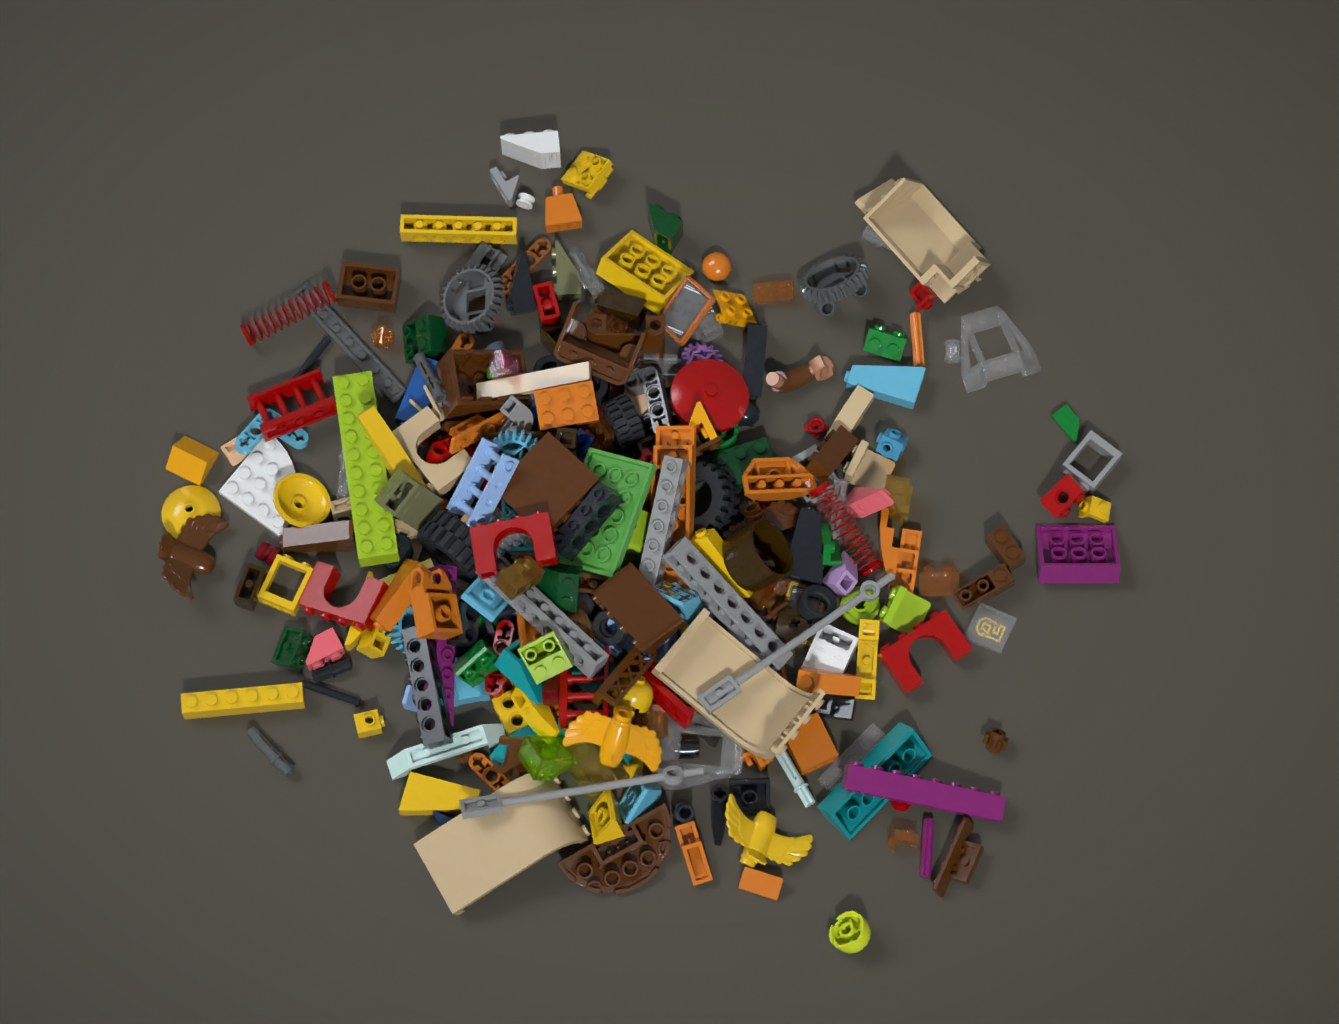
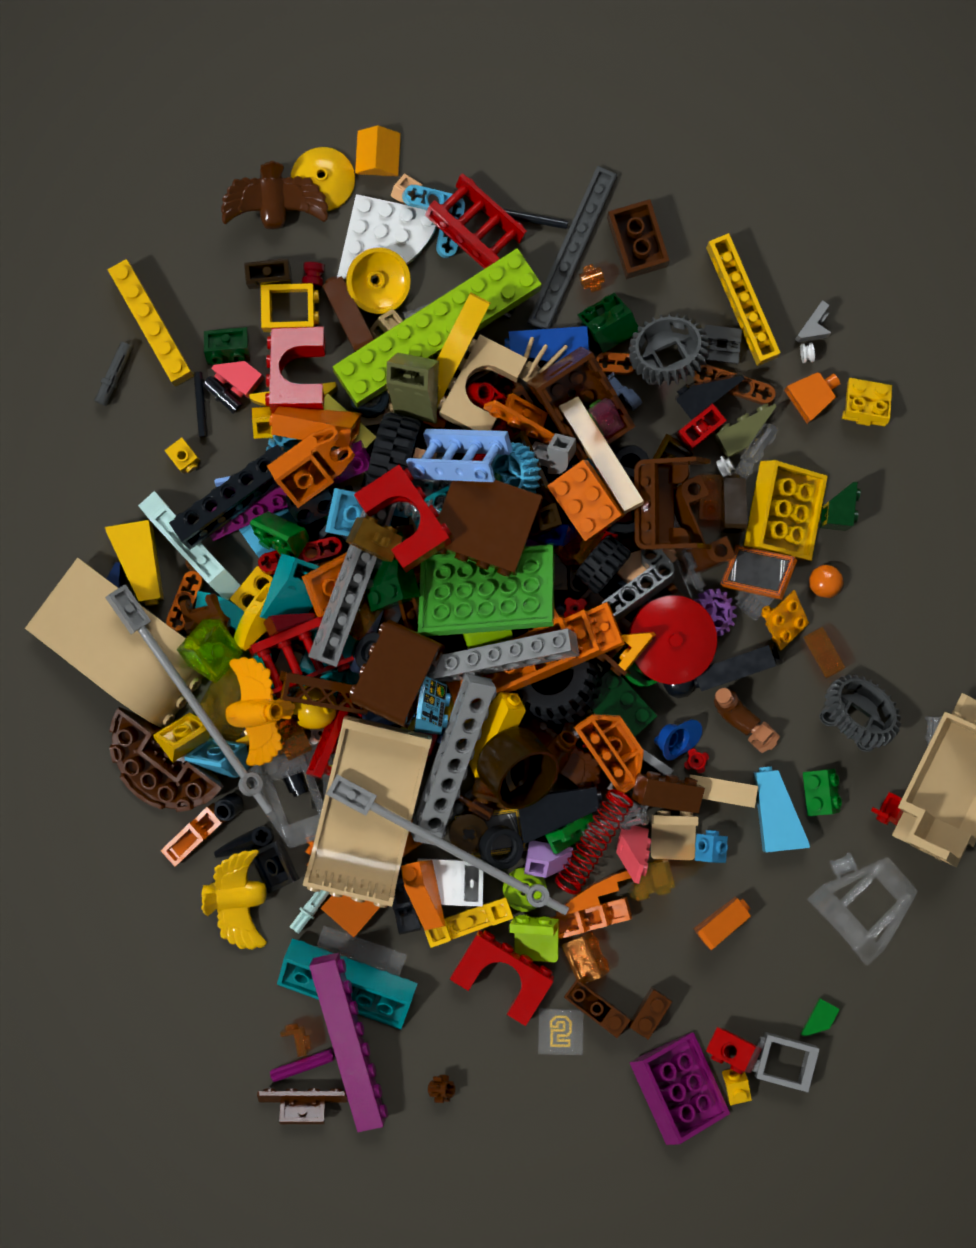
camera: 70 degrees right, 15 degrees up
(325, 285) = (532, 148): red piece -> none
(432, 382) = (556, 352): dark grey pin -> none
(533, 148) = (868, 338): white slope -> none
(546, 656) = (302, 606): lime slope -> none
(586, 520) = (467, 578): black brick -> none
(587, 301) = (725, 466): none -> white plate
(760, 883) = (192, 915): orange slope -> none
(791, 431) = (678, 738): none -> blue piece
(850, 932) = (176, 1028): neon yellow cylinder -> none
(917, 339) = (840, 823): orange axle -> none
(956, 462) = (723, 922): none -> orange slope

